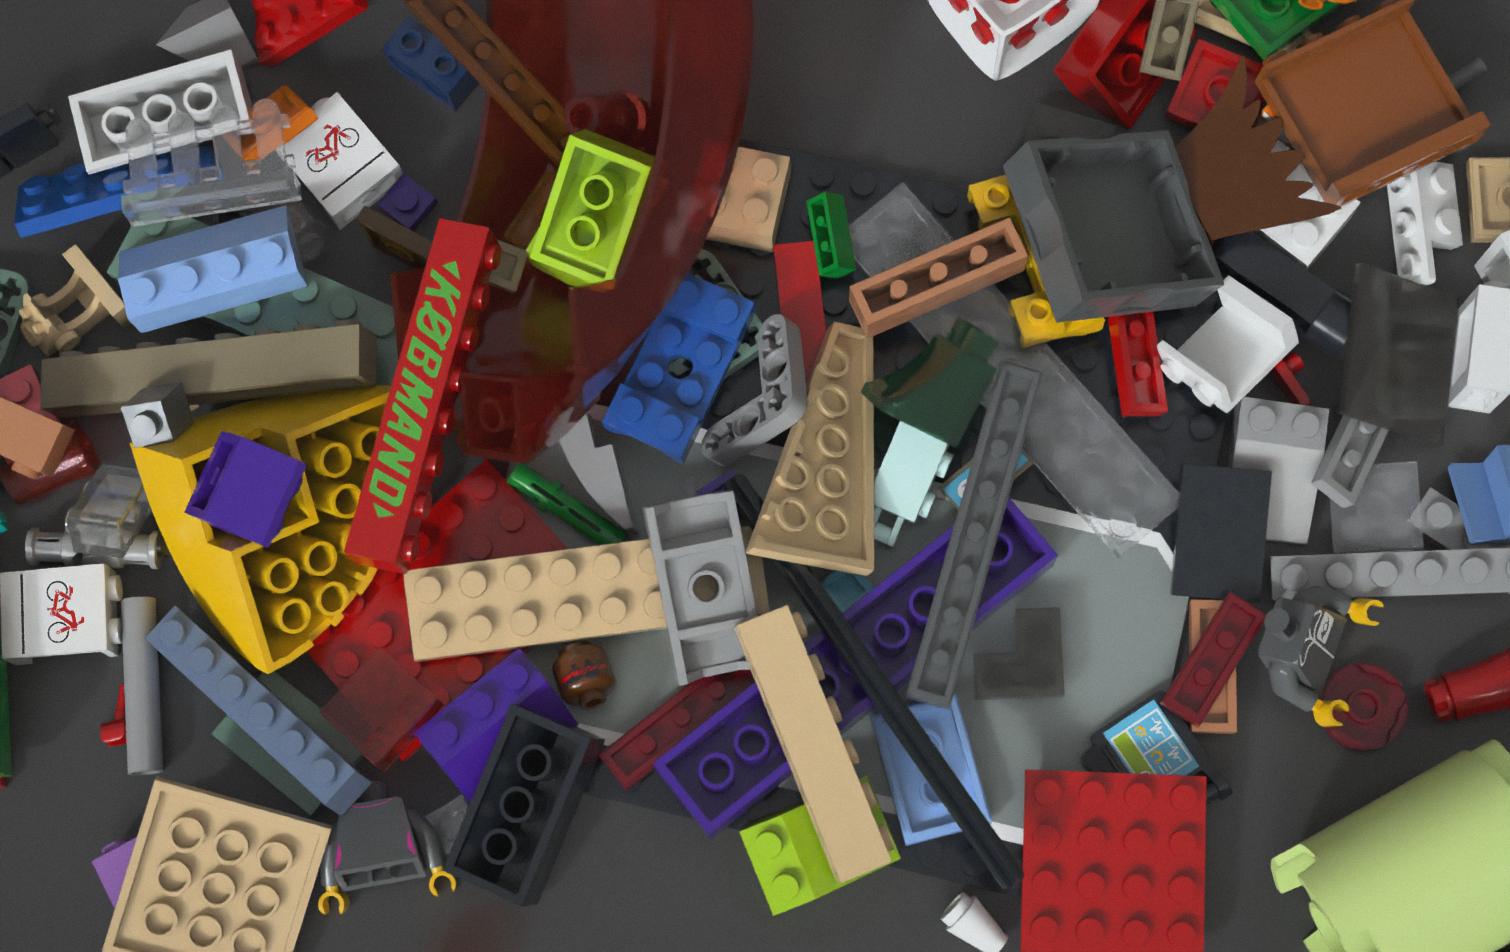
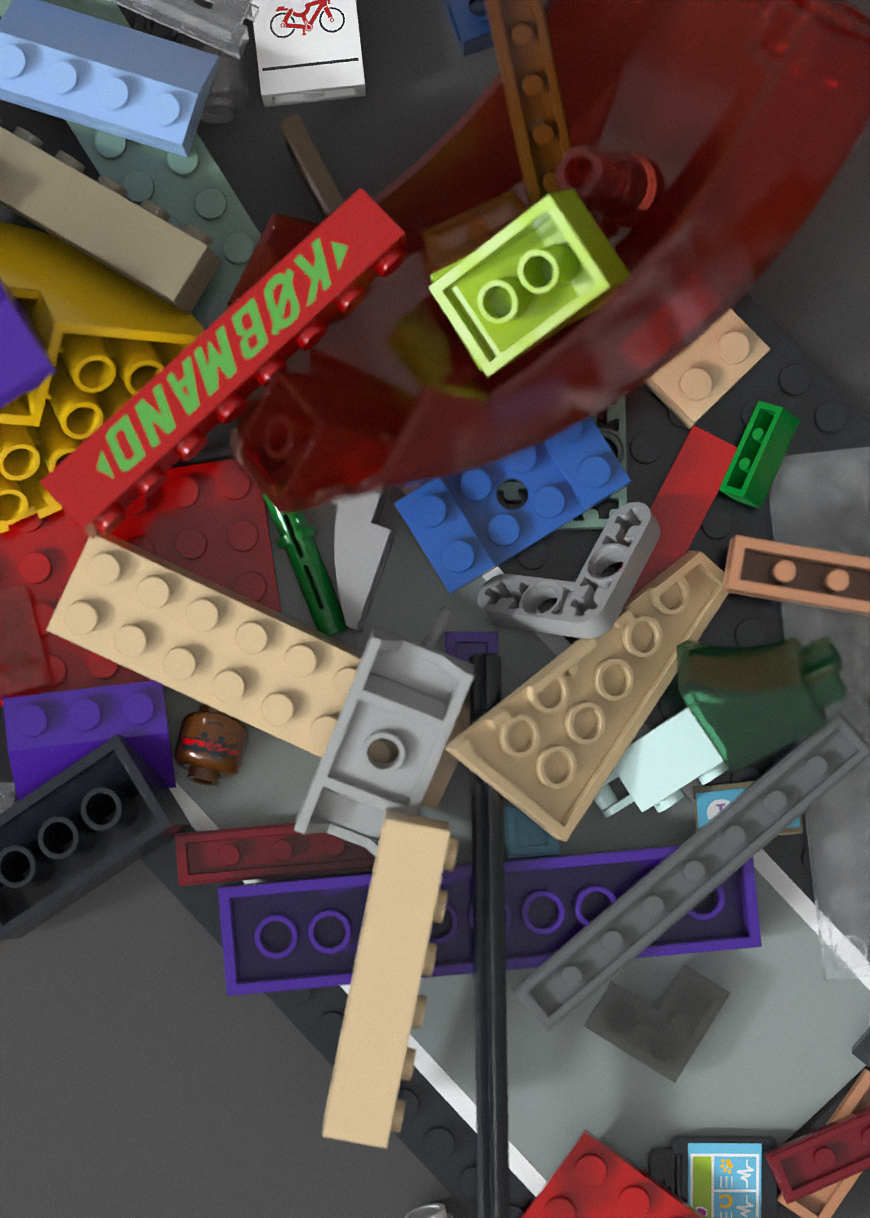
camera: 30 degrees right, 10 degrees up
(407, 203) = (350, 125): dark purple plate -> none
(510, 268) = (409, 275): dark tan plate -> none
(791, 856) = (296, 1062): lime slope -> none
(916, 804) = (452, 1095): light blue tile -> none

